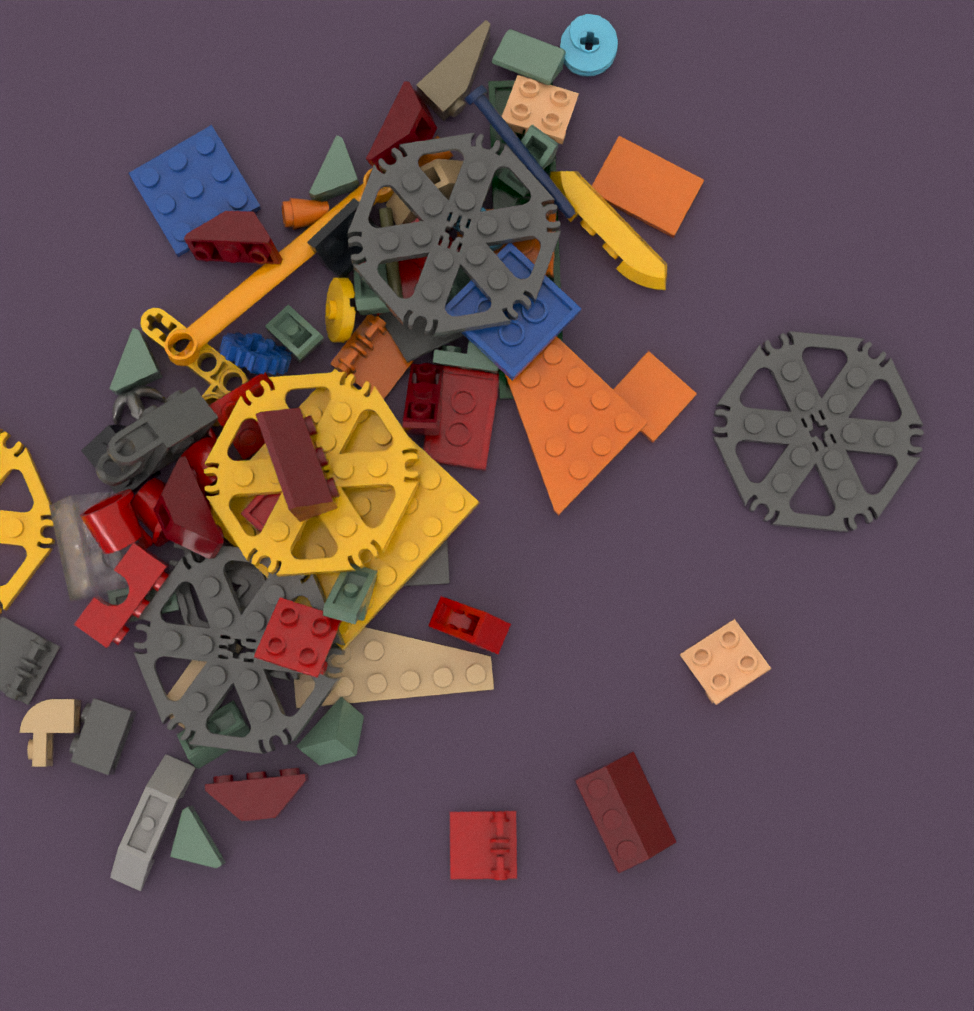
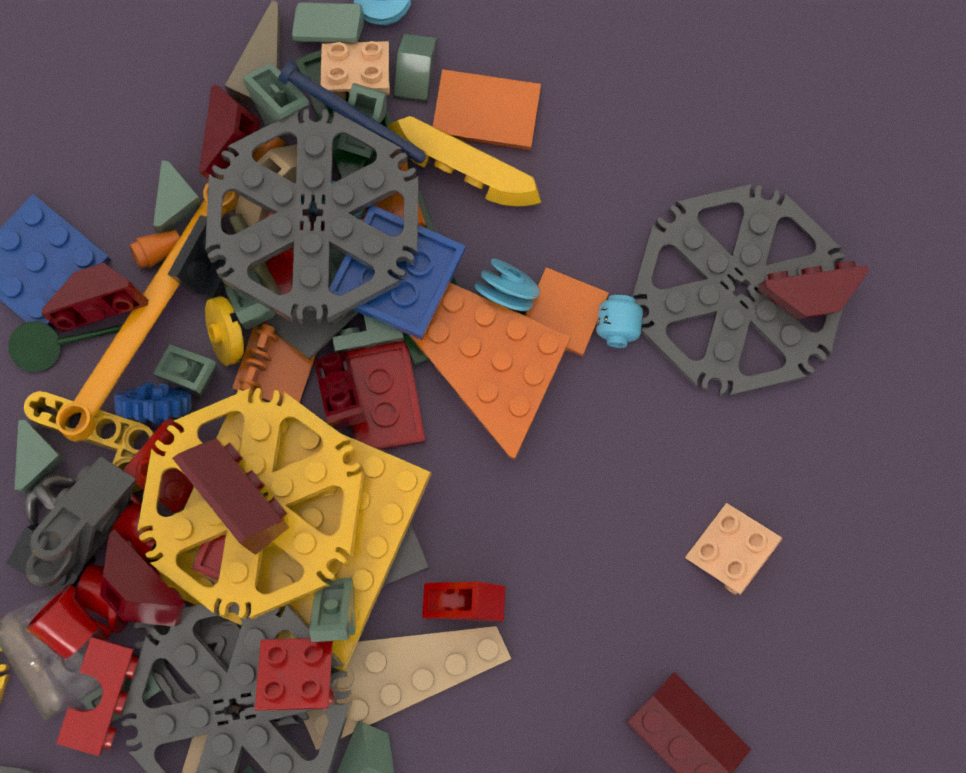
camera: 20 degrees left, 5 degrees down
(170, 266) = (37, 346): none -> dark green piece
(454, 112) = (272, 97): none -> sand green slope
(594, 124) = (414, 67): none -> sand green slope
(607, 357) = (510, 289): none -> medium azure piece
(697, 422) = (619, 320): none -> medium azure head
(883, 457) = (814, 291): none -> dark red slope

